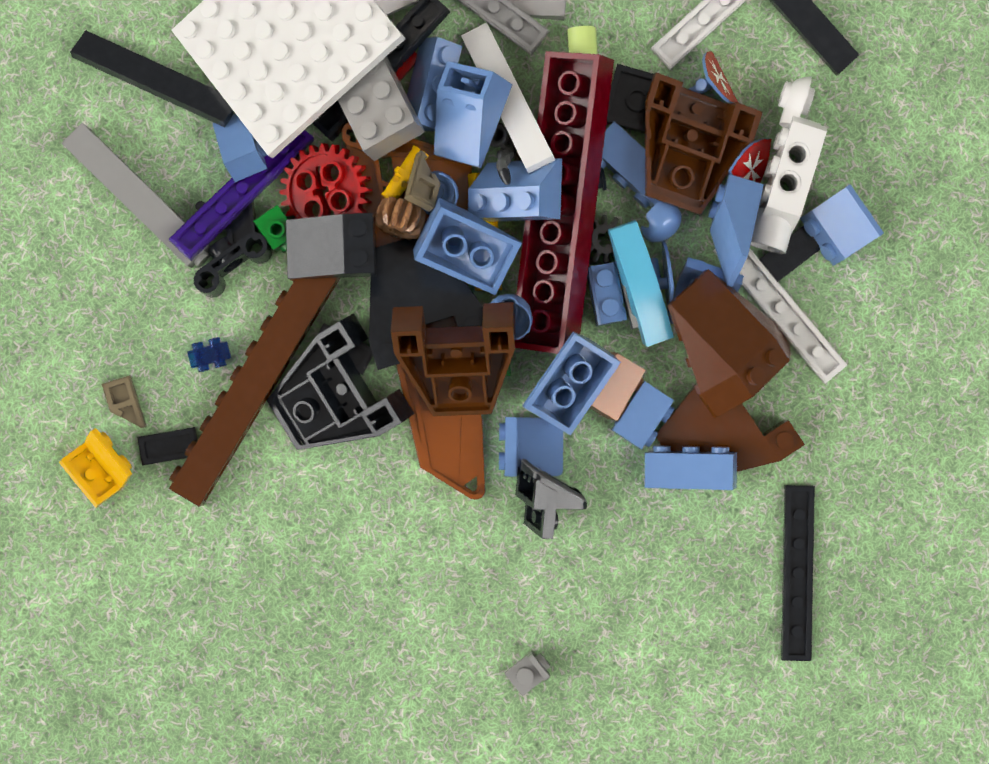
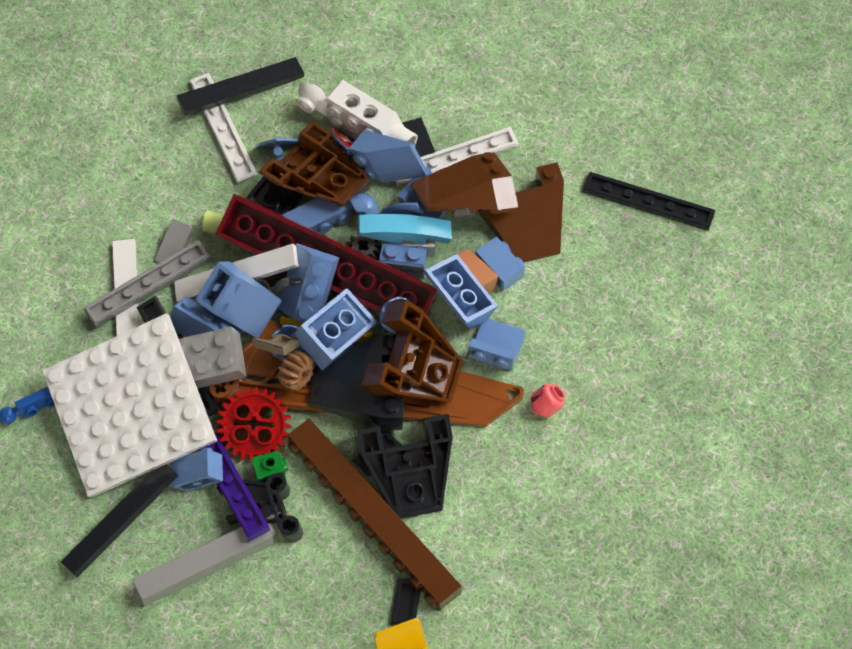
camera: 70 degrees left, 25 degrees down
(123, 400) = (358, 625): dark tan tile -> none
(202, 356) = (346, 552): clear blue piece -> none
(331, 246) = (299, 422): slope -> none
(401, 177) = (263, 363): yellow pin -> none
(473, 532) = (547, 400): none -> coral head
(528, 672) = (666, 396): light grey bracket -> none
(542, 497) = (537, 341): piece -> none
(691, 468) = (549, 240): medium blue brick -> none
(841, 225) = (411, 95): slope -> none

